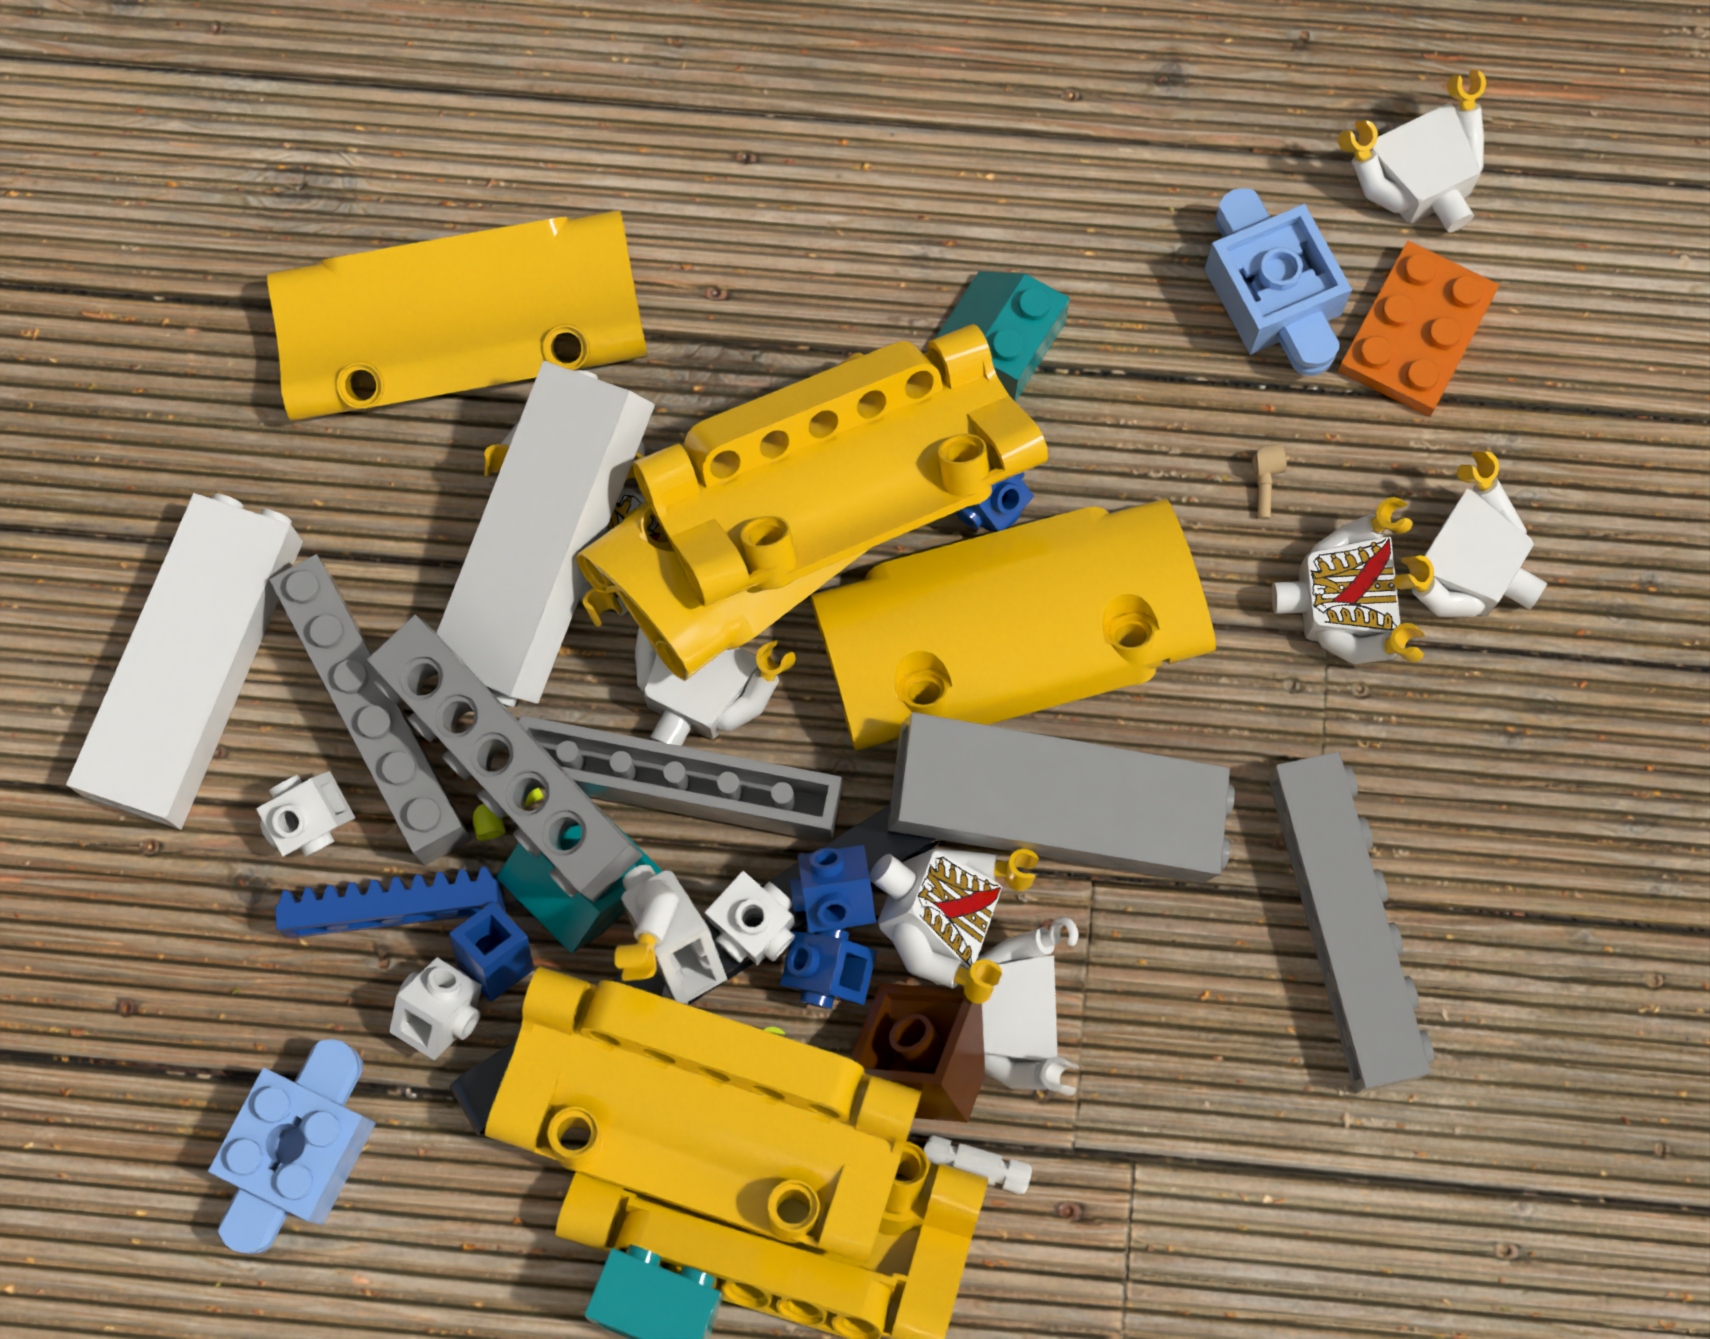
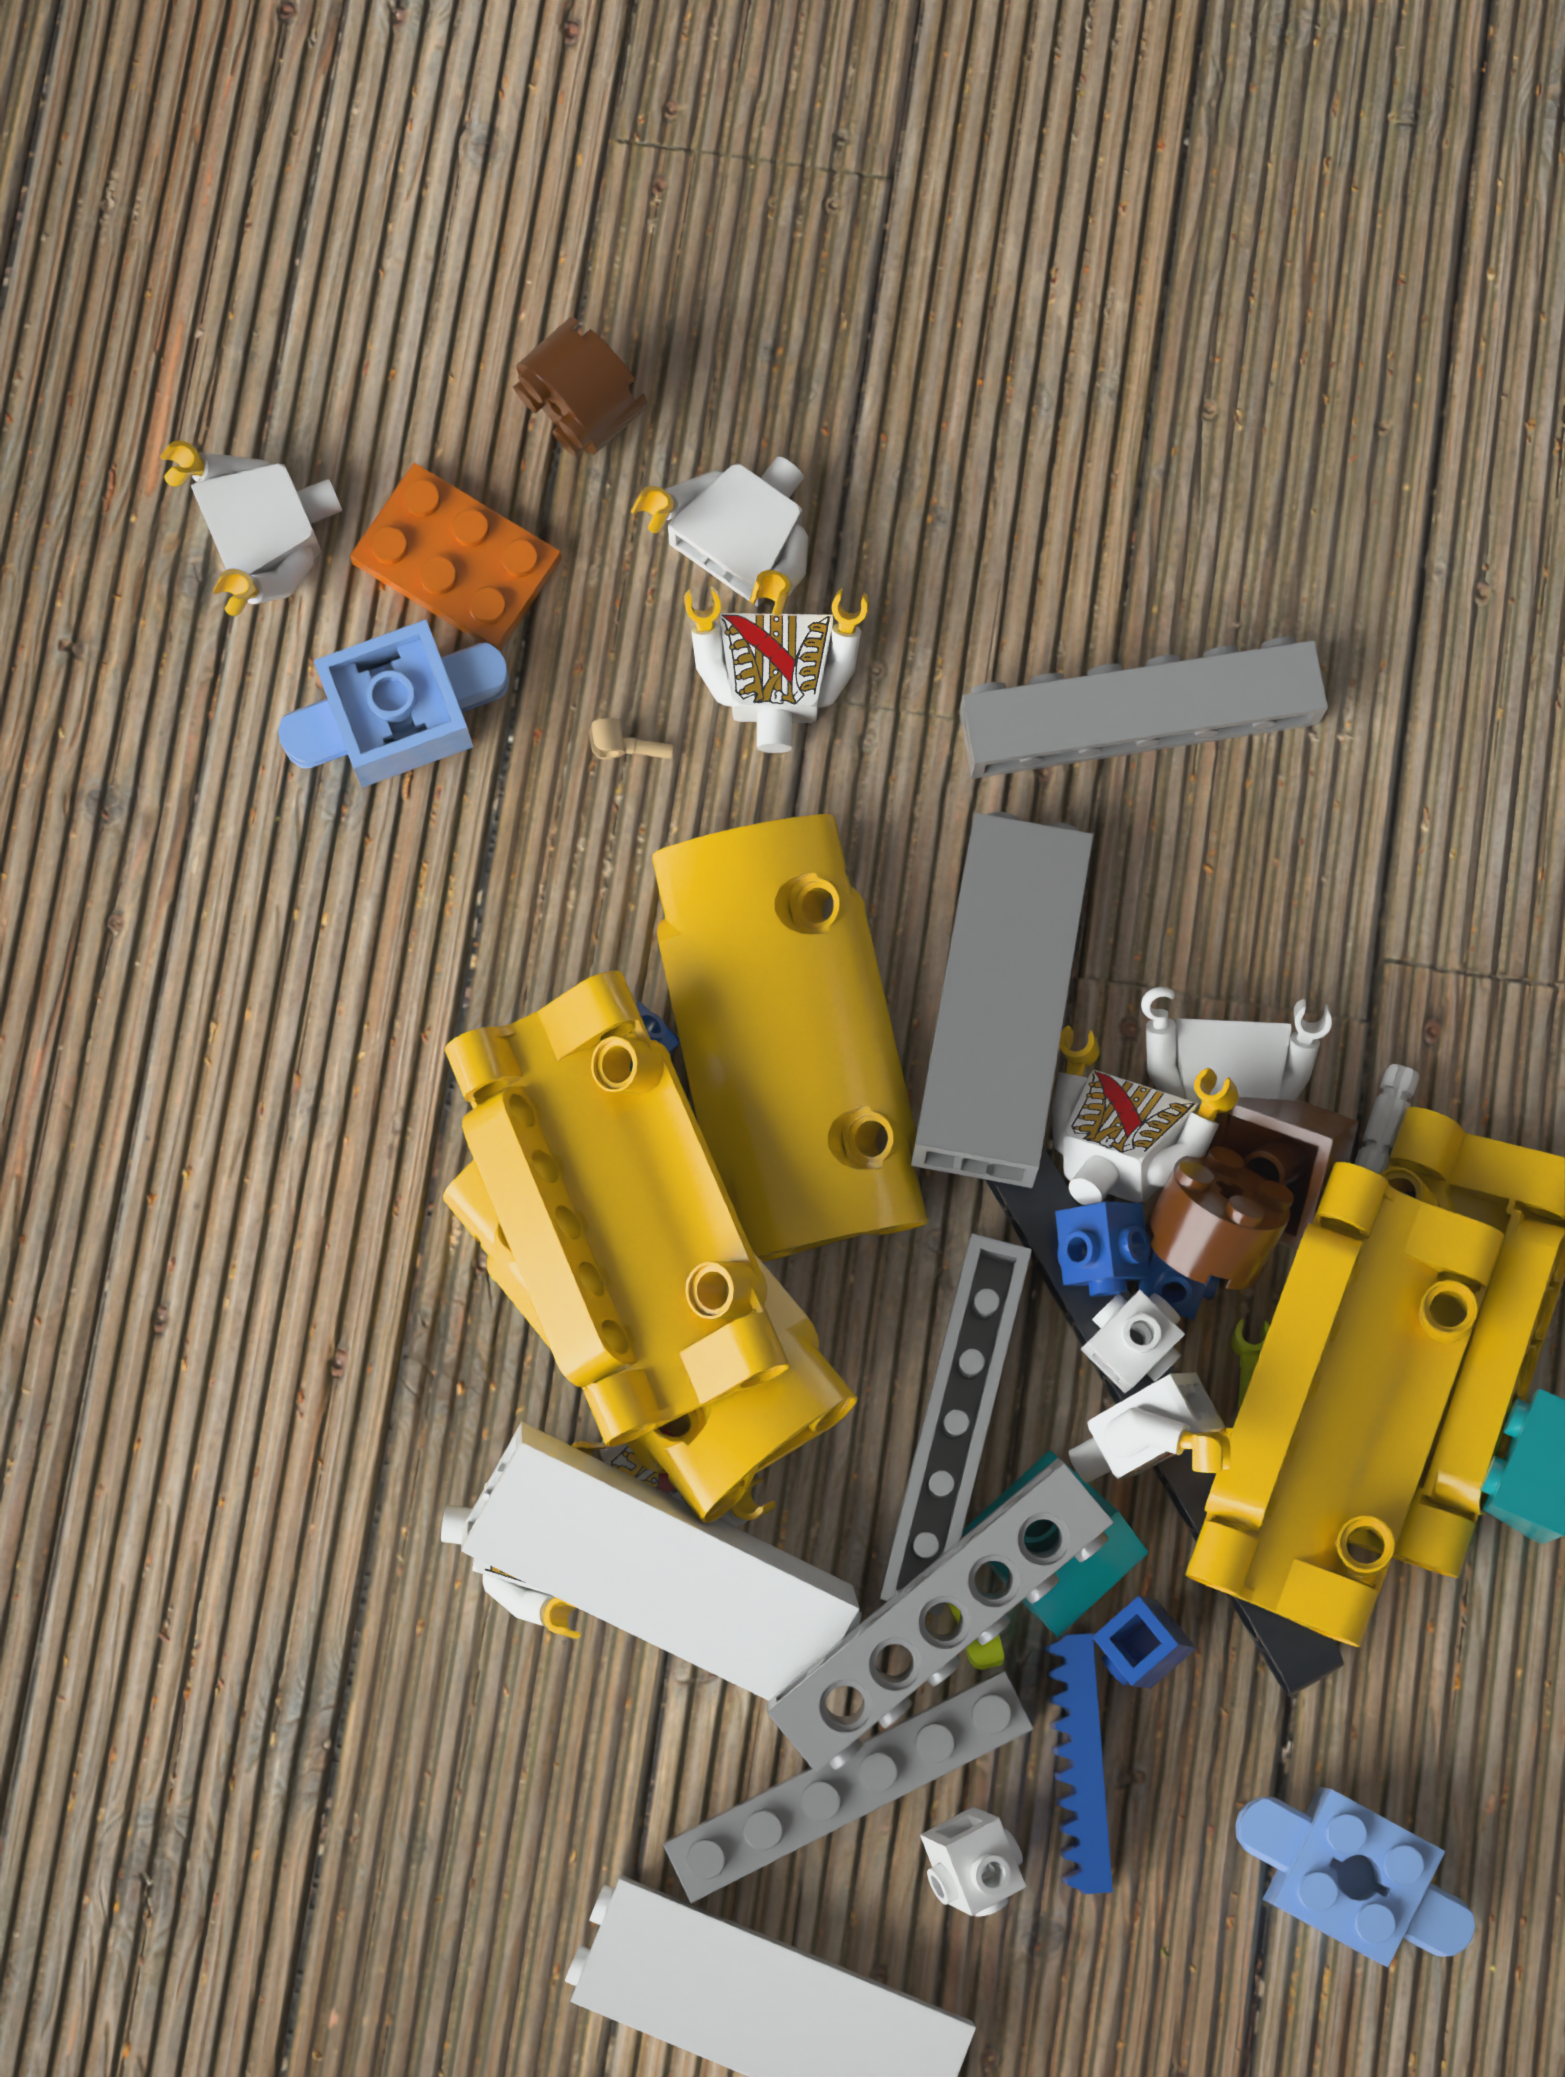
camera: 90 degrees left, 5 degrees up
(436, 1008) = (1205, 1708): white brick -> none
(454, 313) = (351, 1678): yellow panel -> none
(715, 698) = (866, 1366): white torso -> none
(863, 987) = (1219, 1219): none -> reddish brown brick
(1017, 320) = (410, 1019): teal slope -> none
(1584, 405) = (579, 388): none -> reddish brown brick

